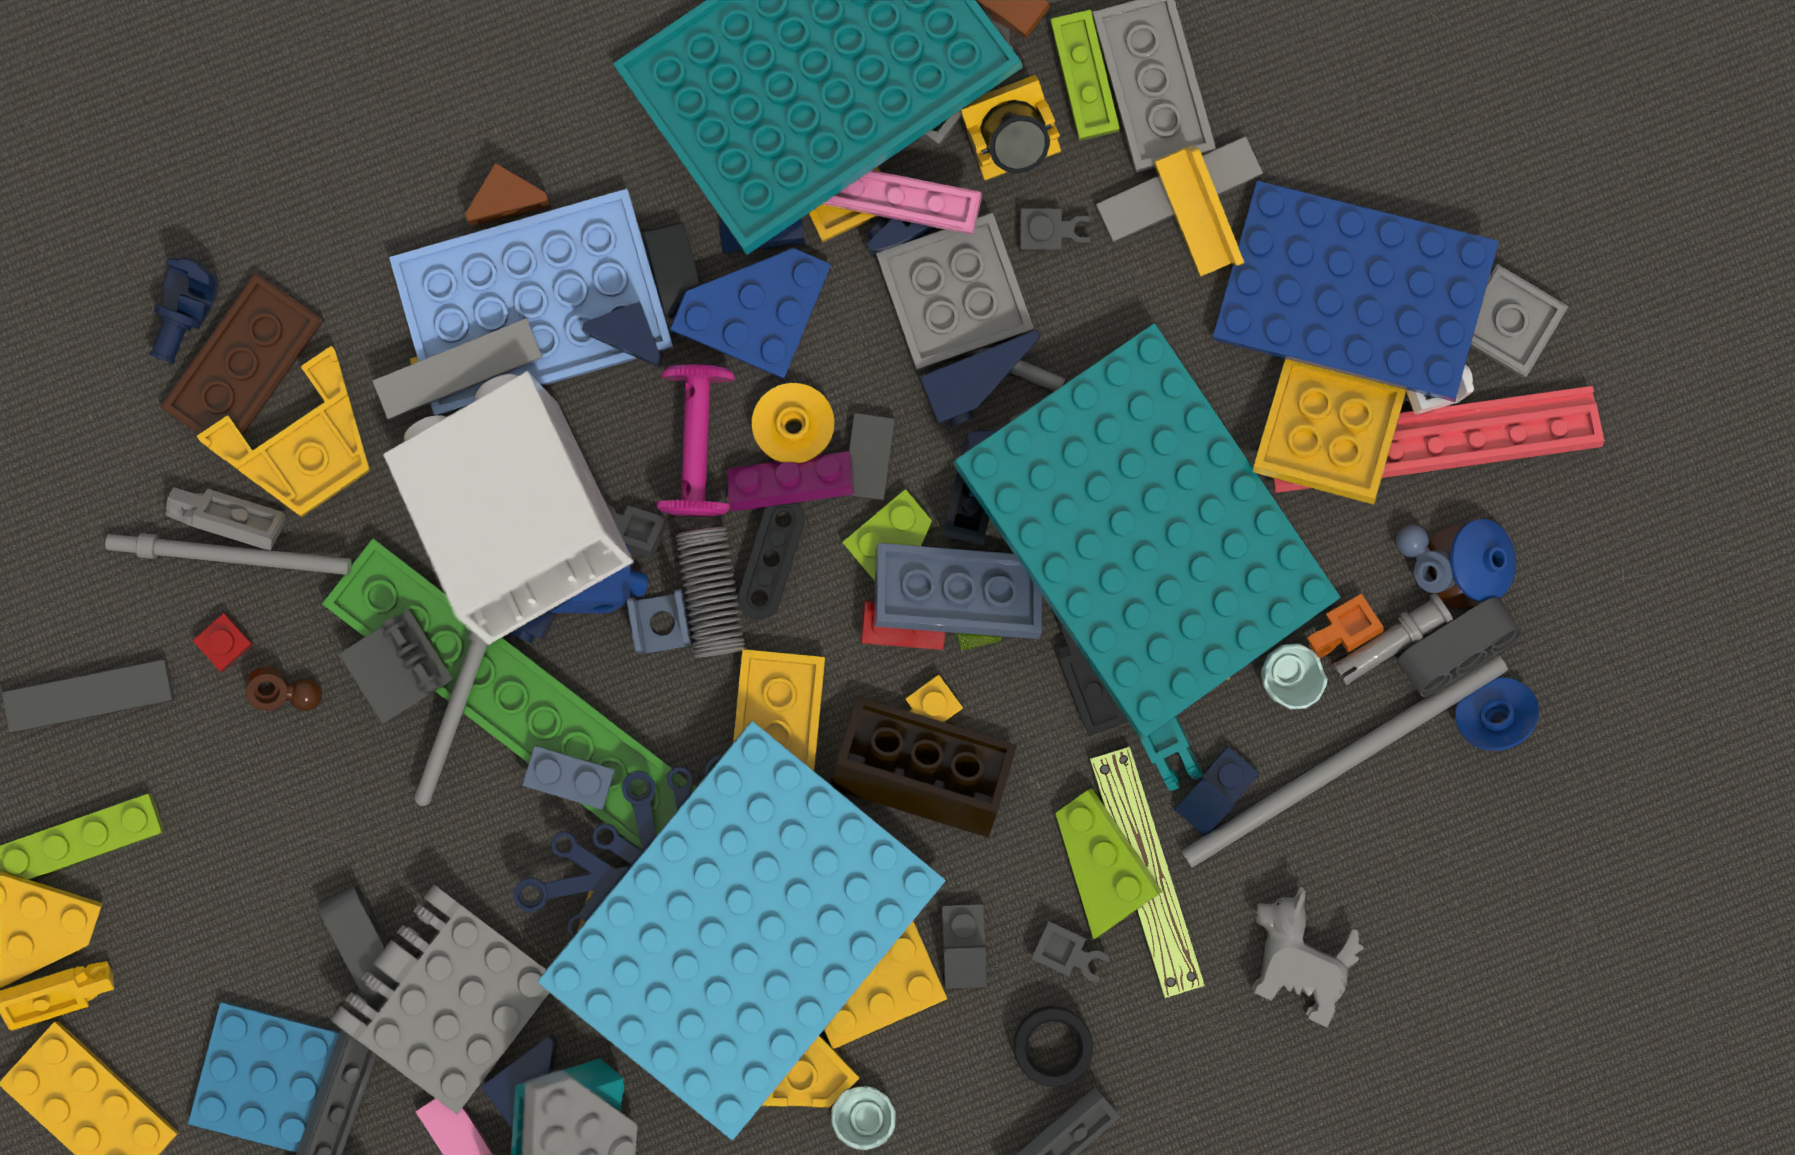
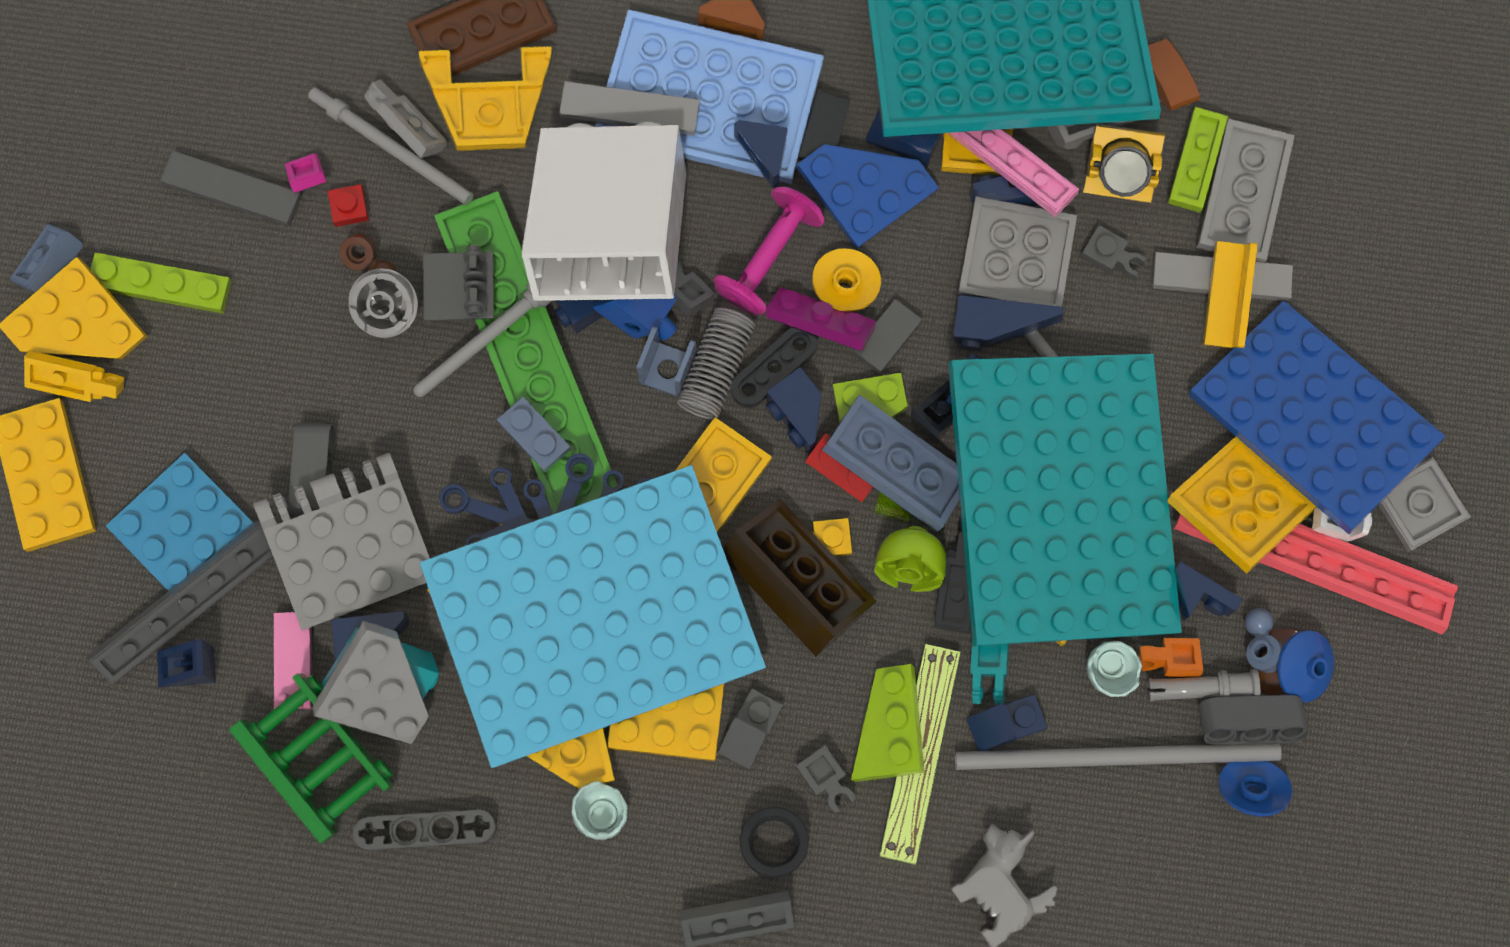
camera: 25 degrees right, 10 degrees down
(156, 635) = (305, 172): none -> dark pink tile
(329, 731) = (383, 303): none -> light grey cone
(822, 587) = (798, 405): none -> dark blue slope
(1027, 680) = (911, 558): none -> lime cylinder
(1328, 544) = (1195, 587): none -> dark blue slope

